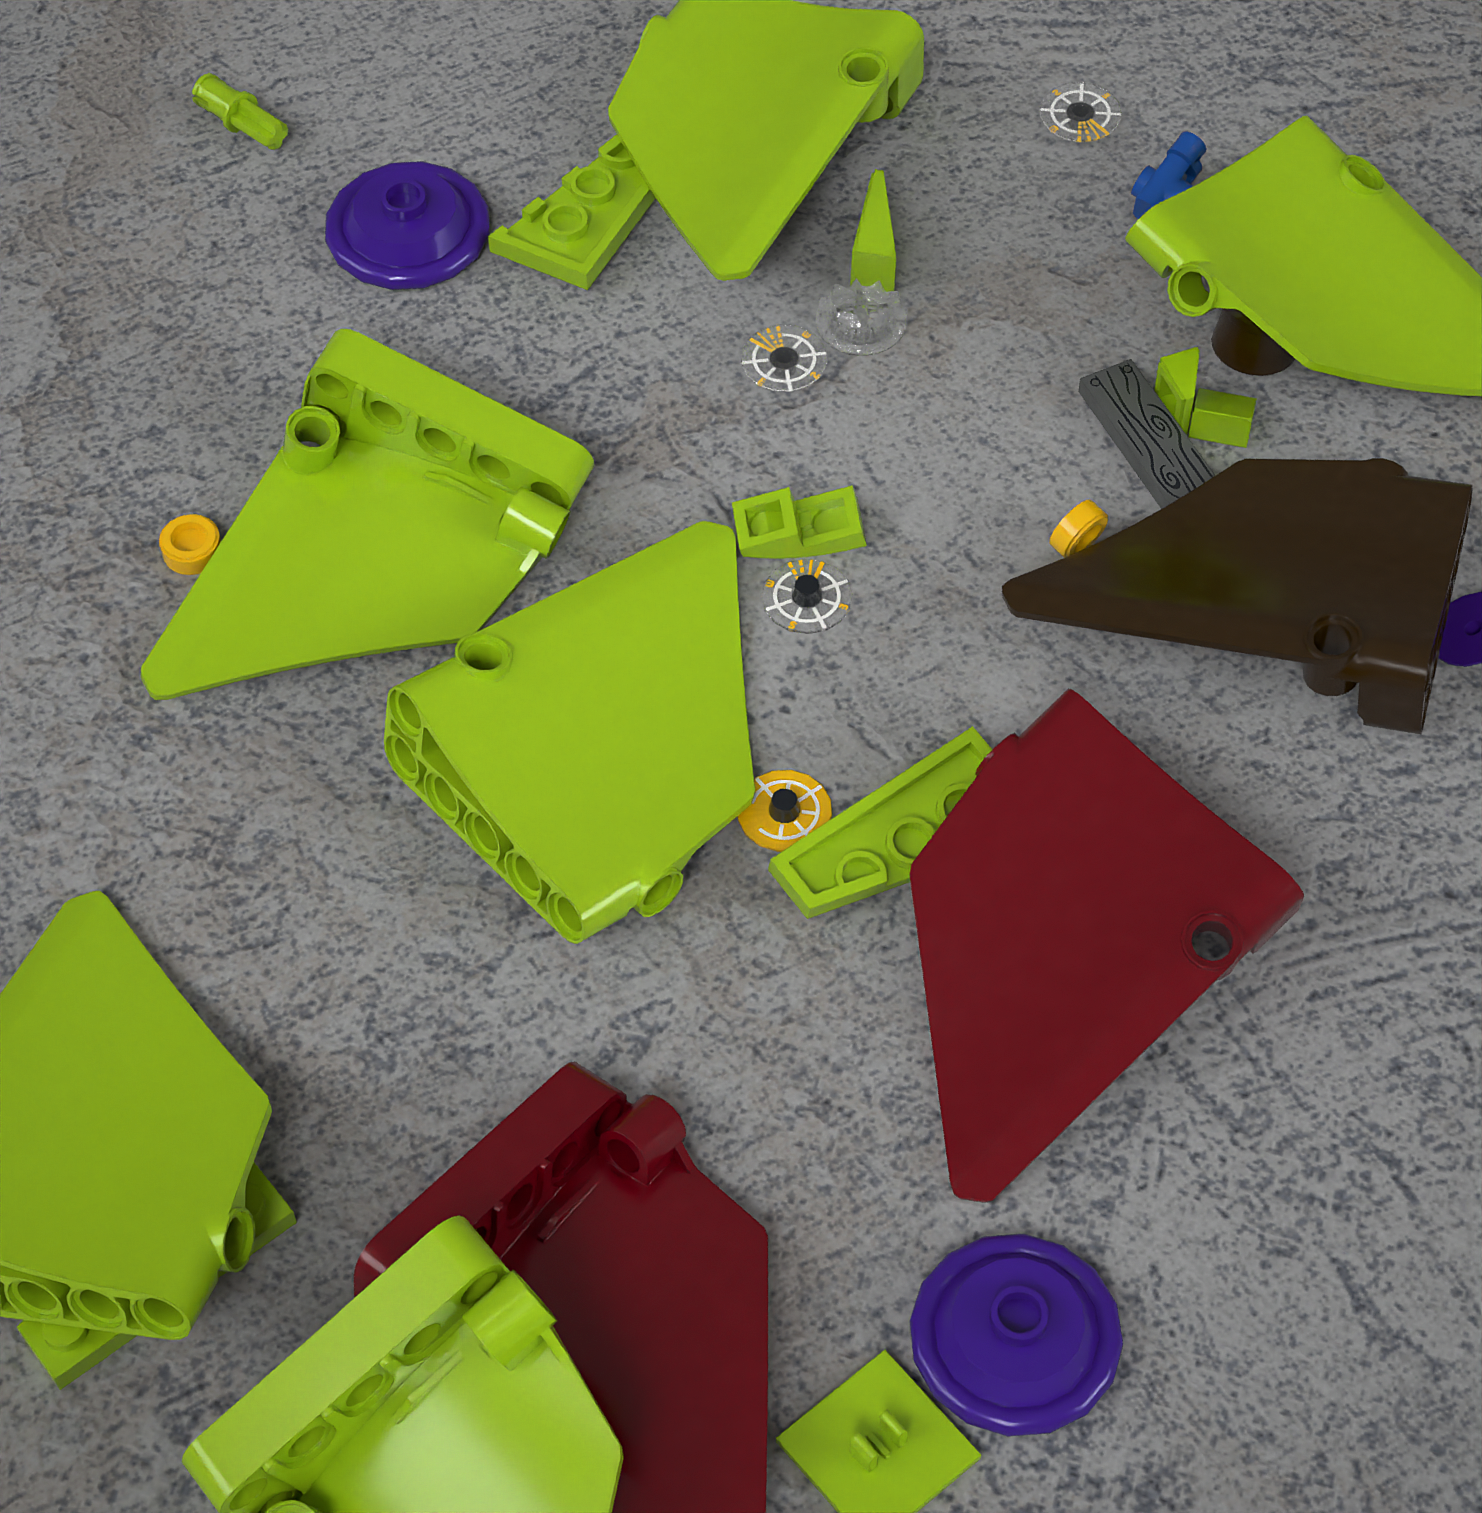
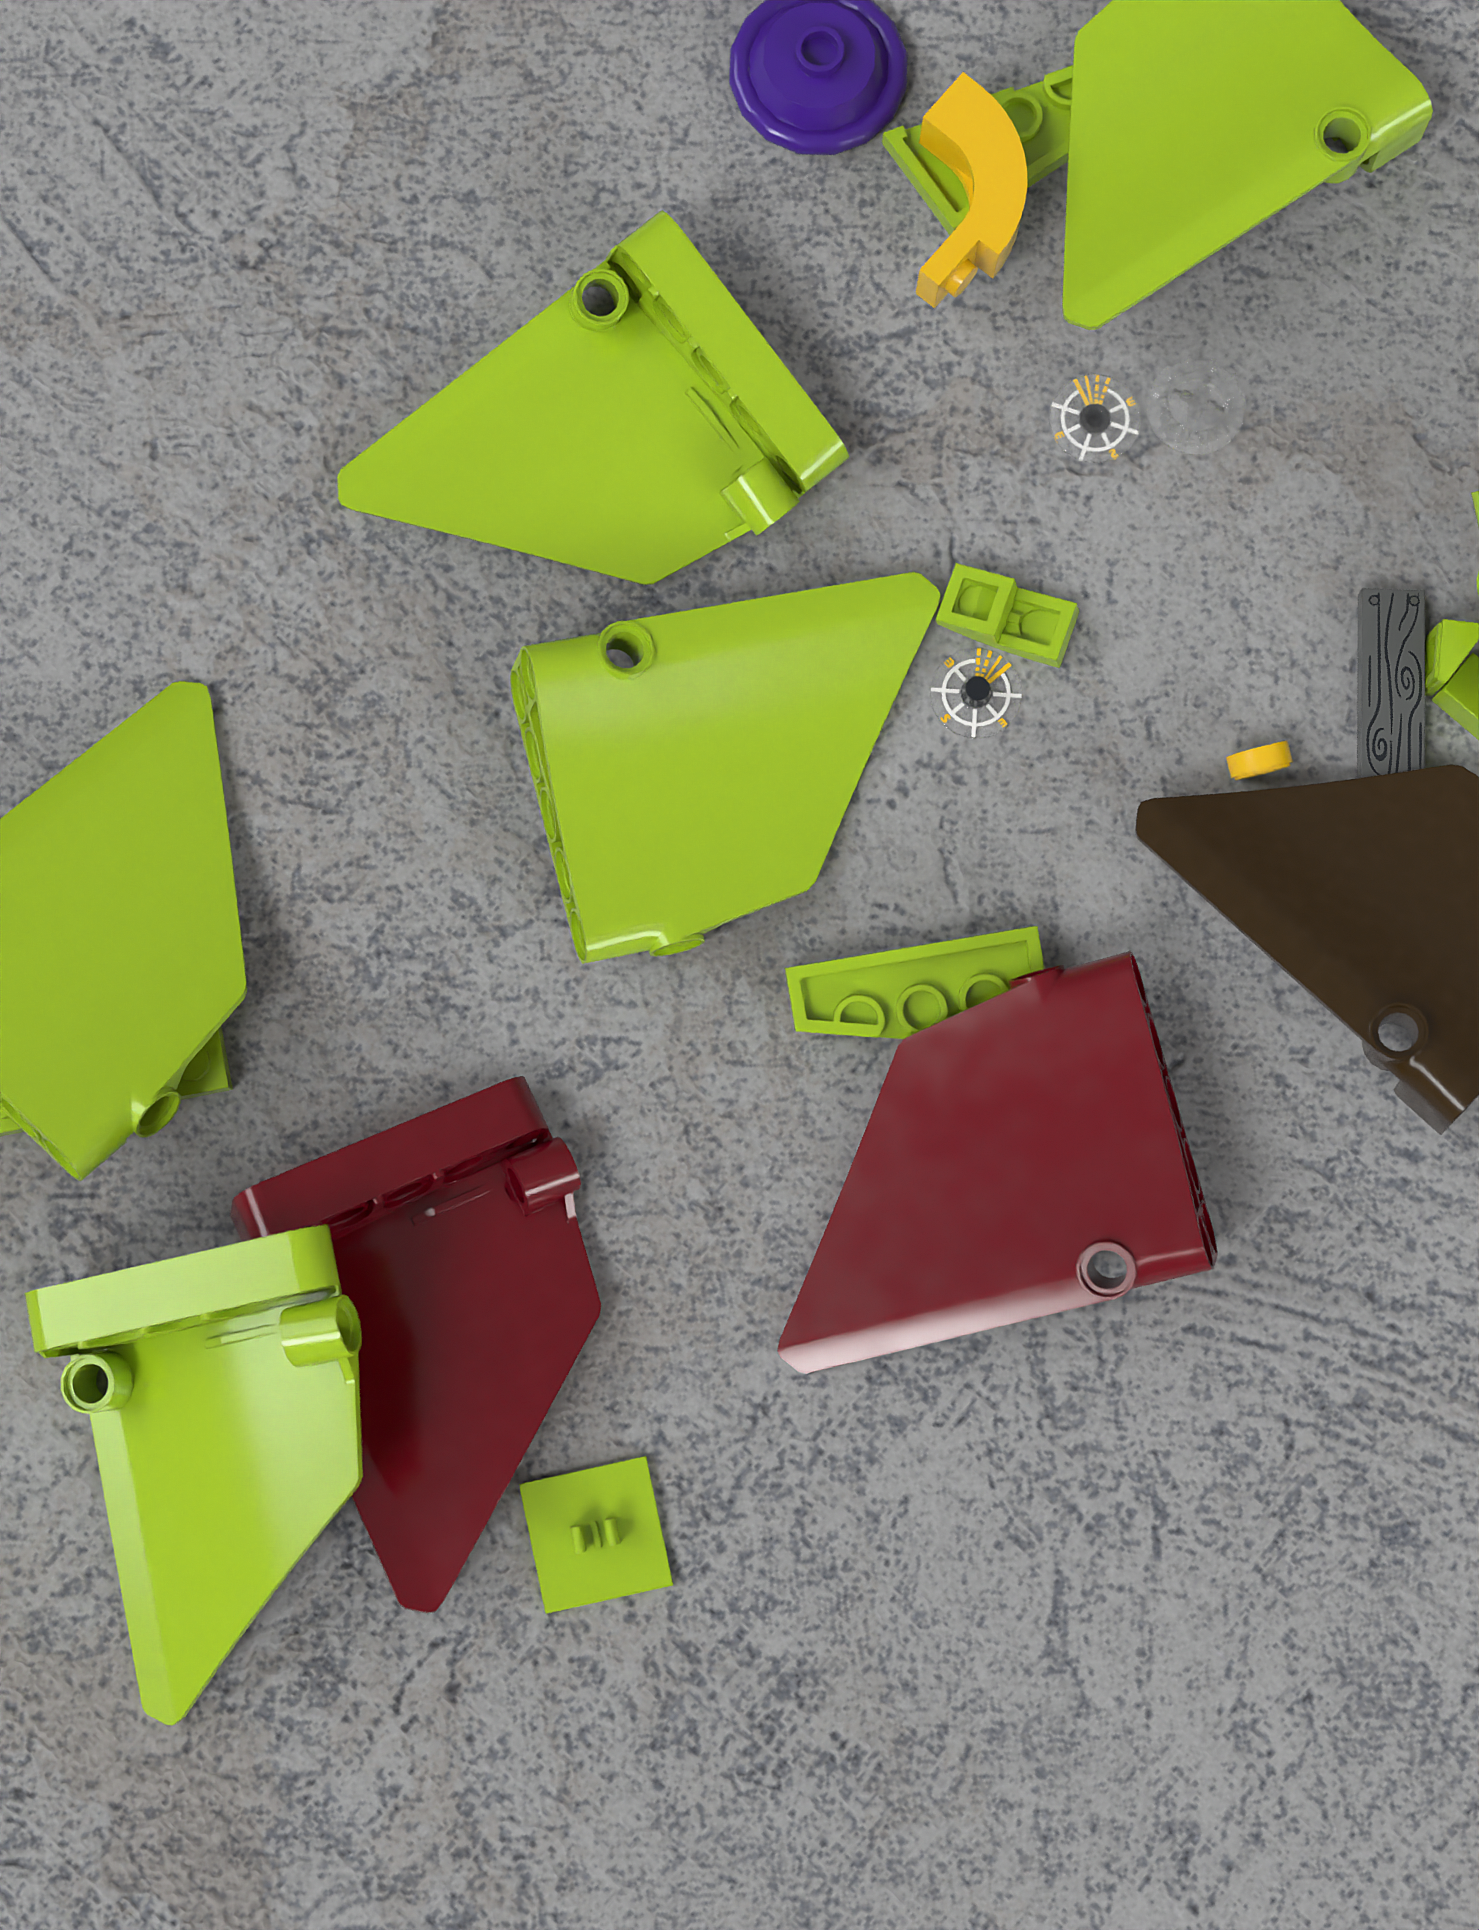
camera: 25 degrees right, 25 degrees up
(189, 543) = (443, 350): yellow tile -> none
(593, 211) = (985, 152): none -> yellow arch
(785, 809) = (837, 910): piece -> none
(874, 242) = (1247, 337): lime slope -> none
(1016, 1335) = (757, 1500): dark purple piece -> none

